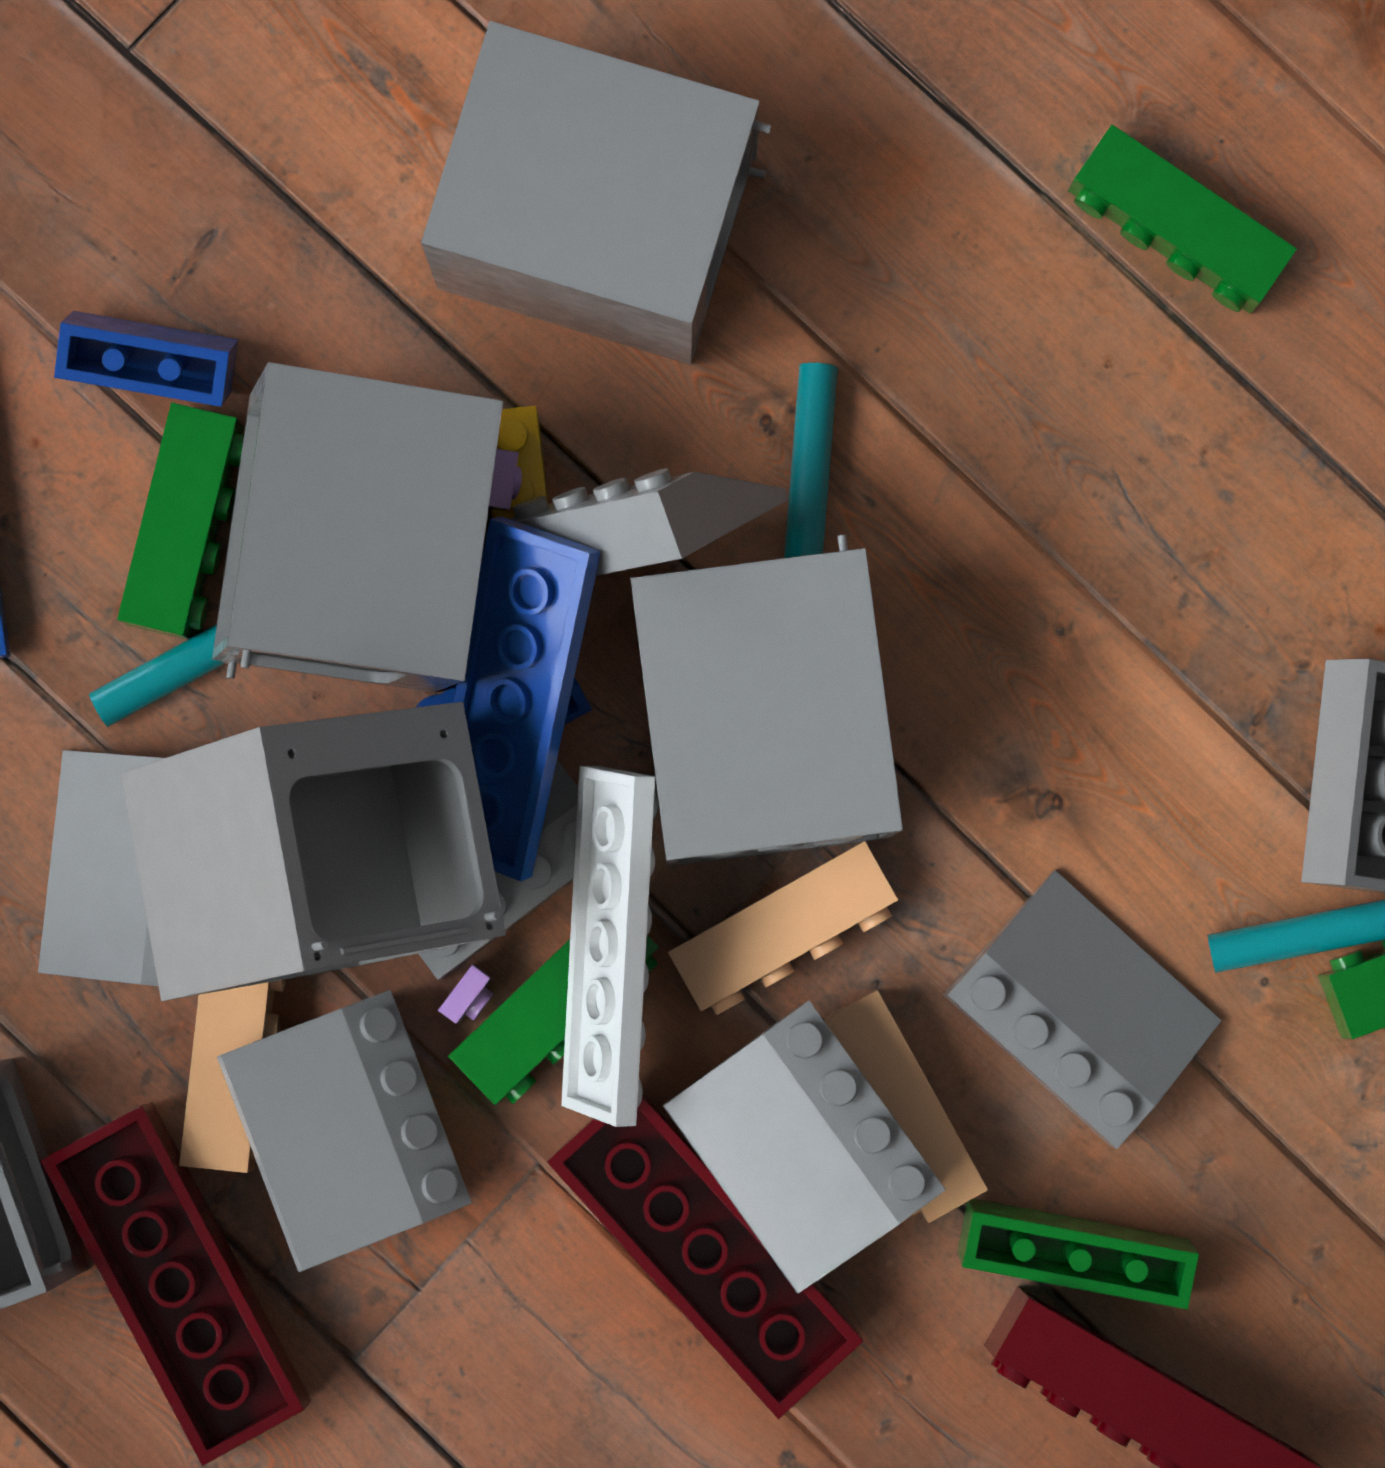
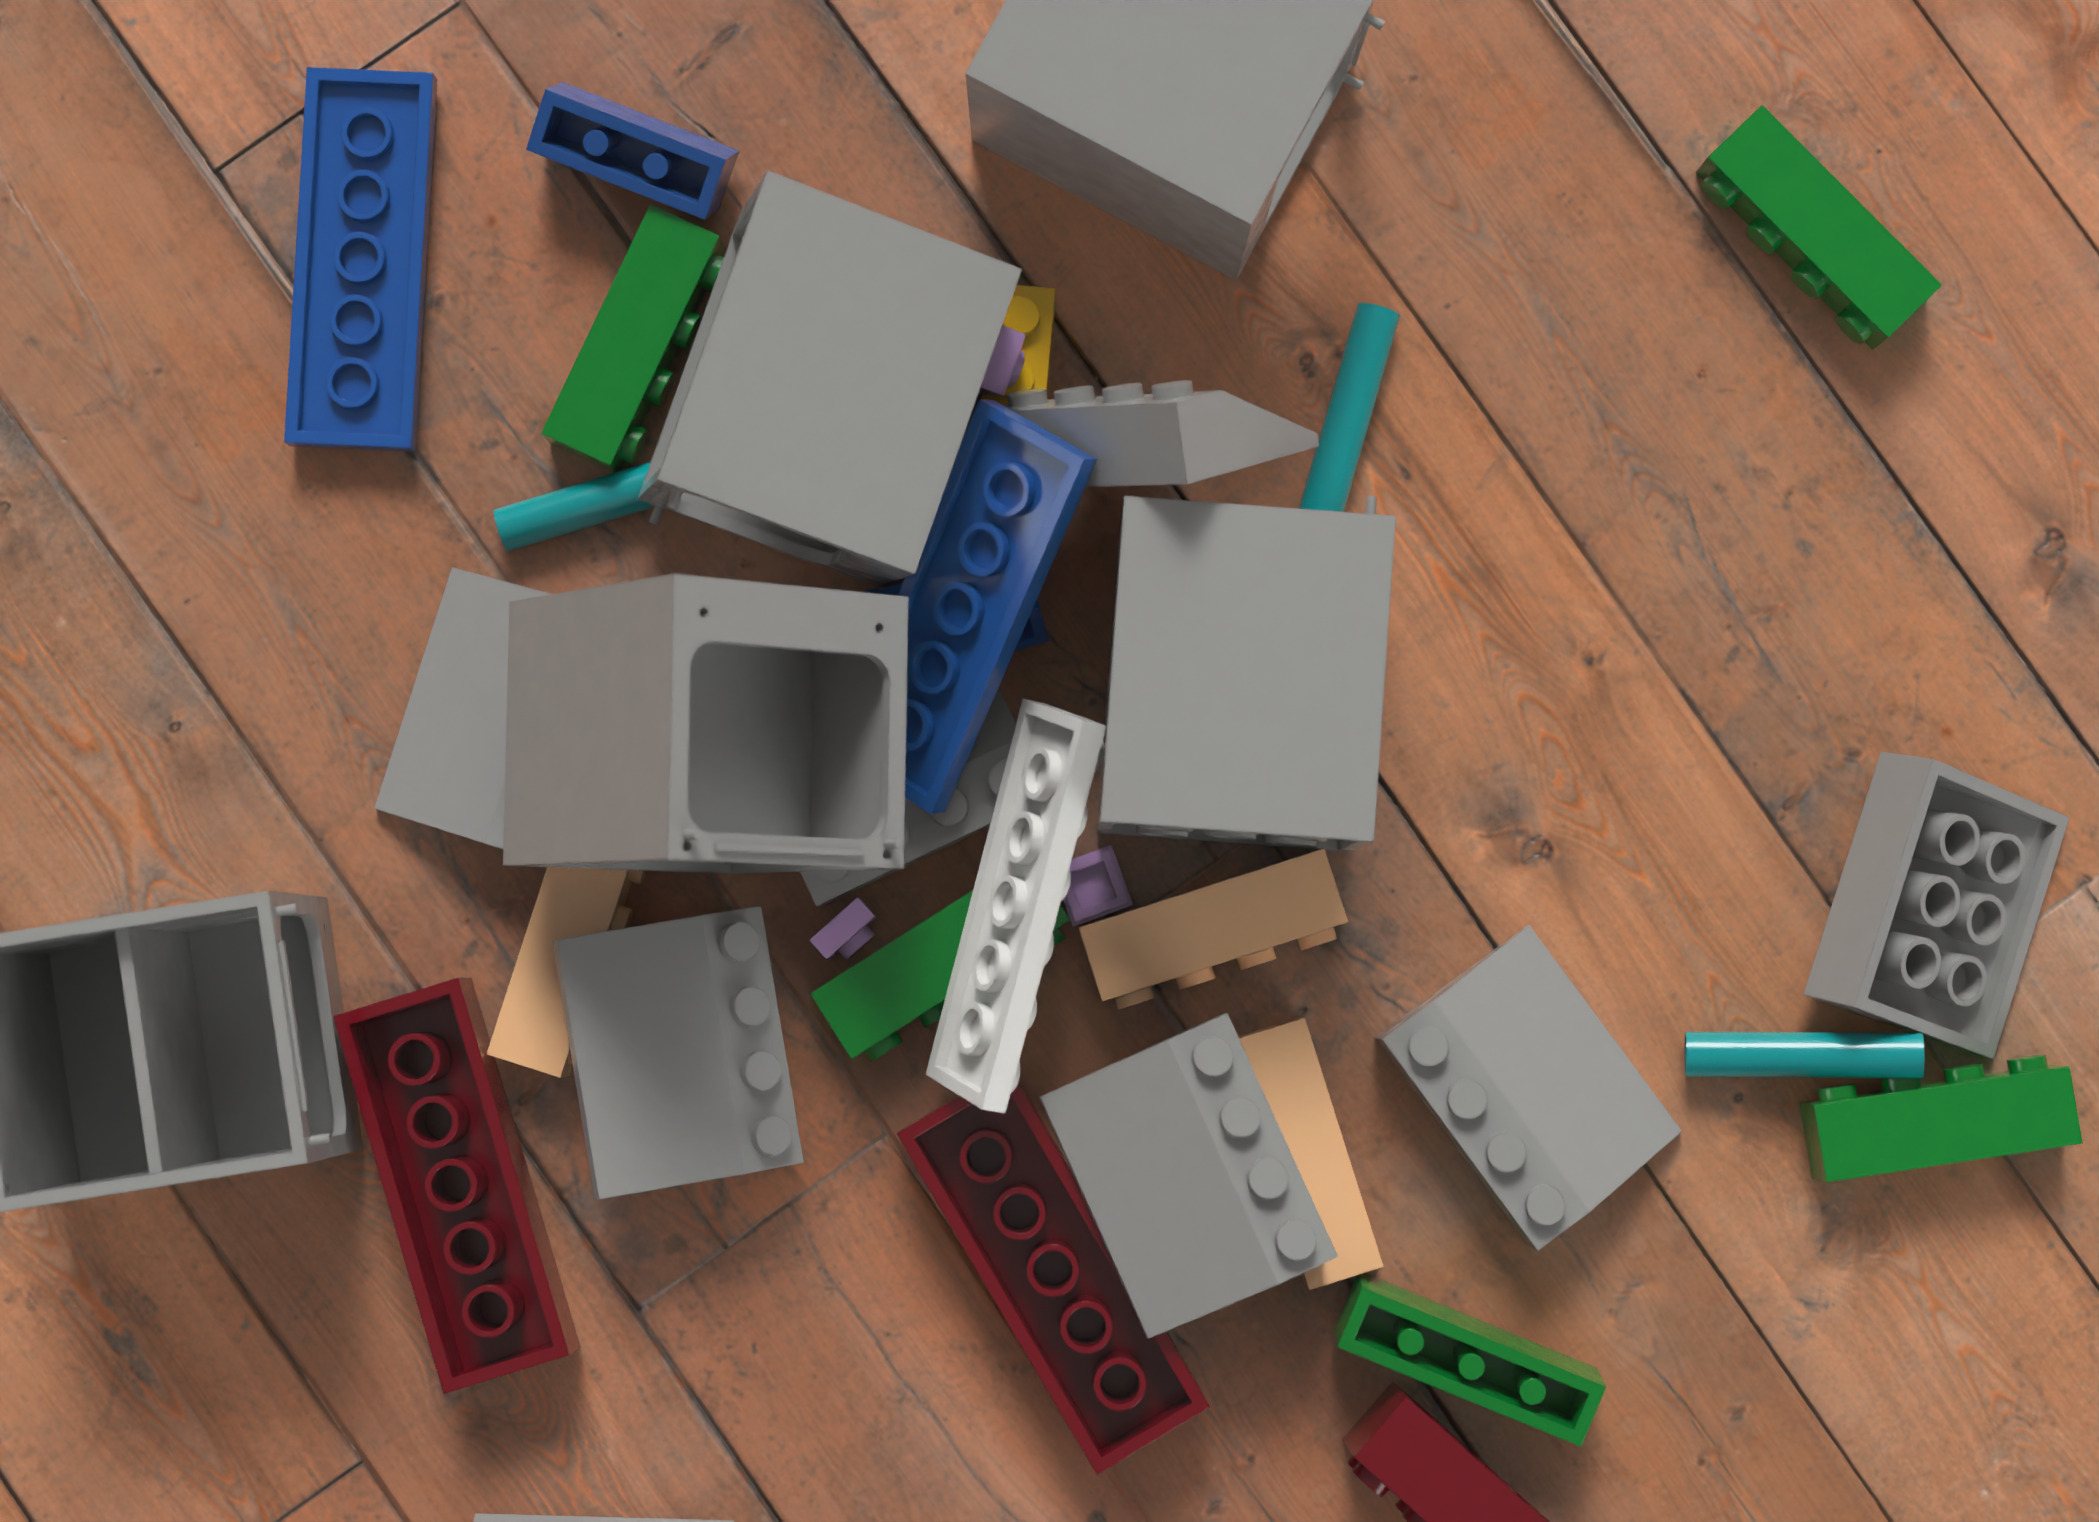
camera: 15 degrees right, 0 degrees up
(675, 913) = (1095, 887): none -> lavender tile

